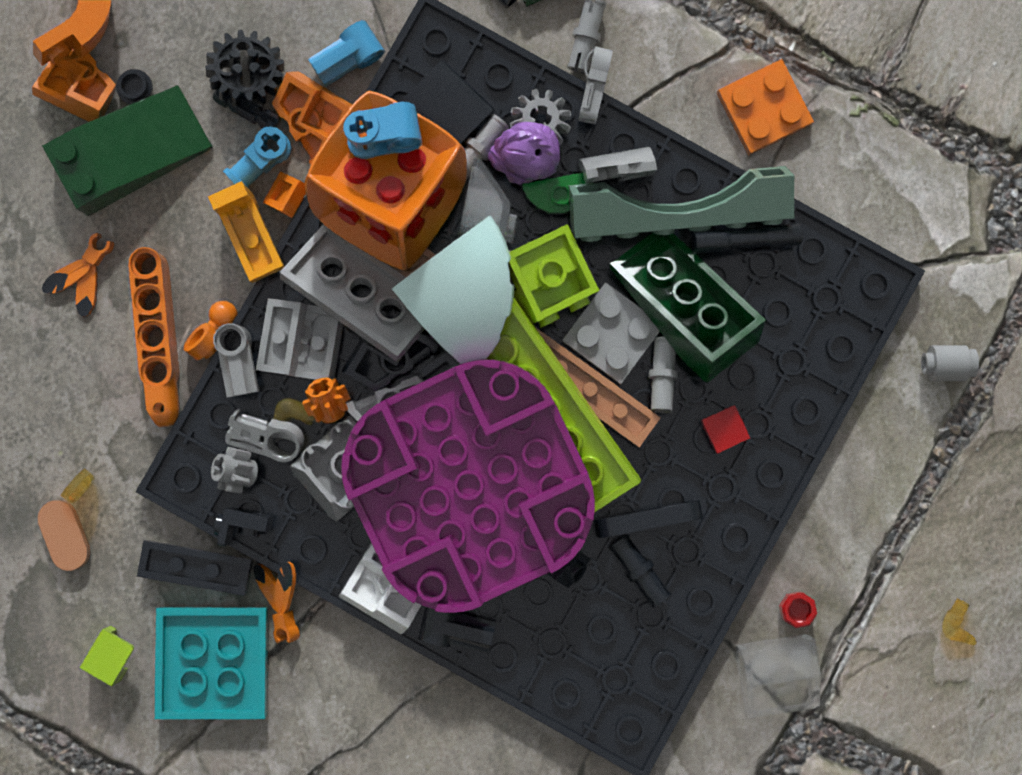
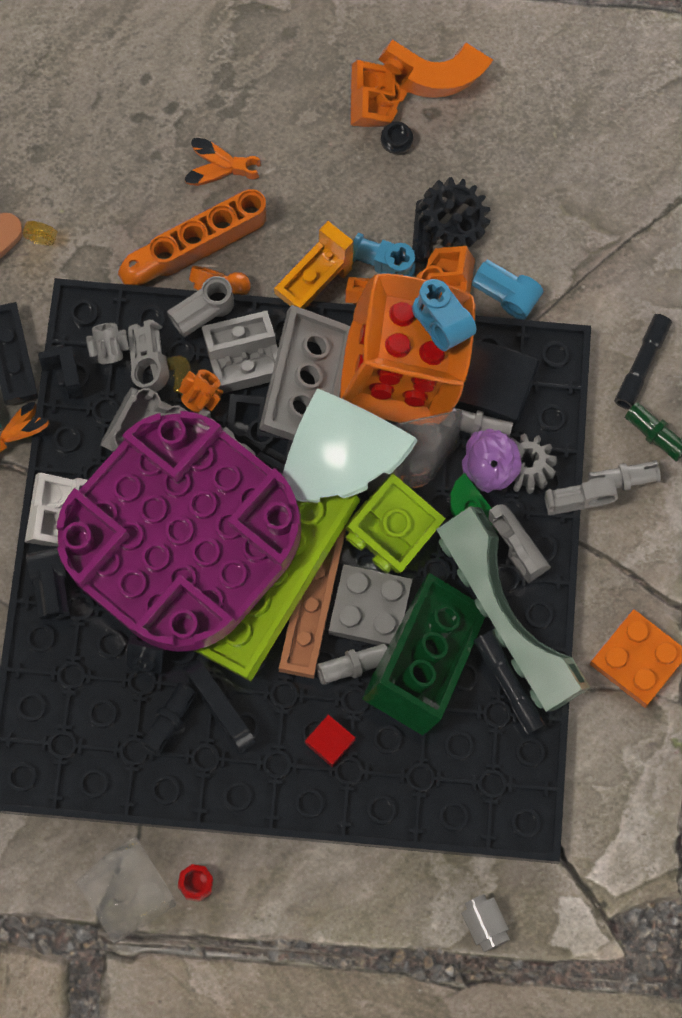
camera: 65 degrees right, 15 degrees down
(126, 149) = (340, 153): dark green slope -> none

